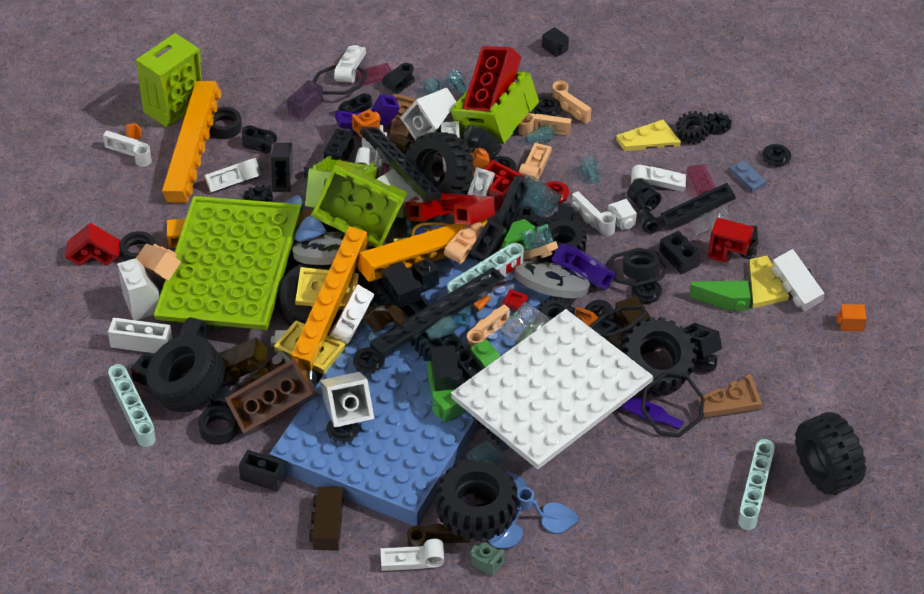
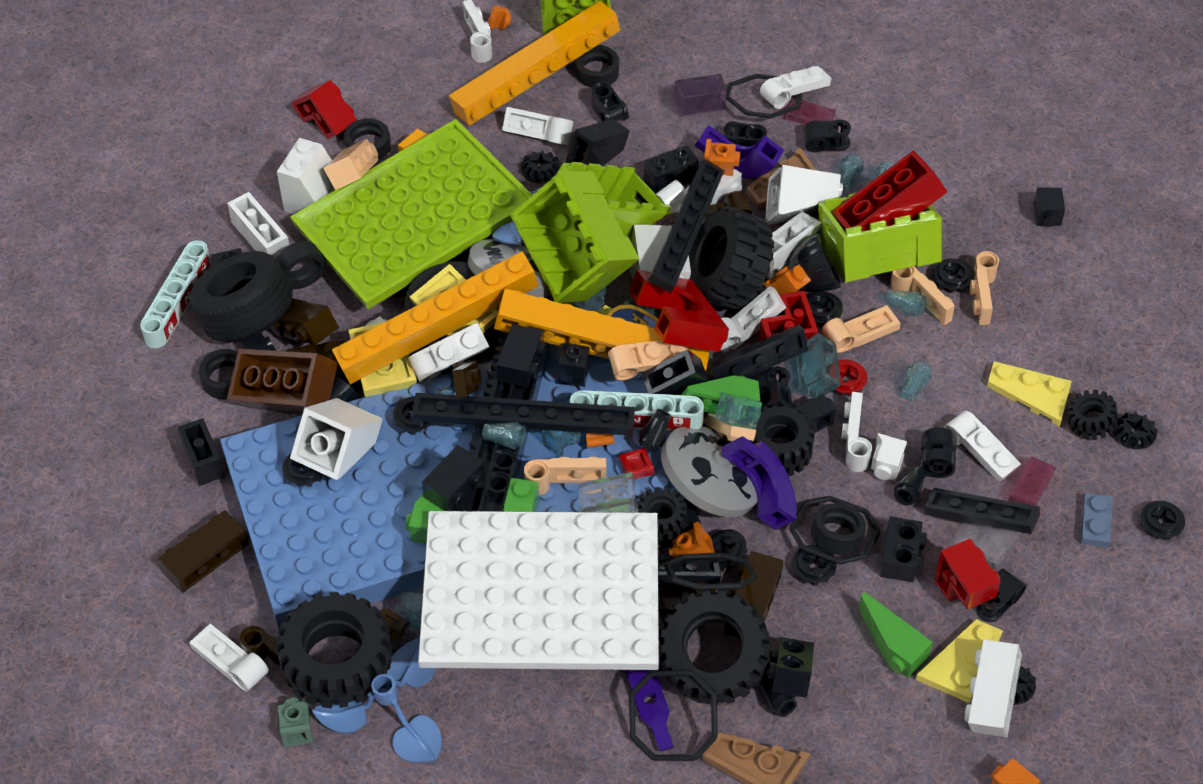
camera: 45 degrees right, 5 degrees up
(510, 273) = (654, 432): none -> black cone

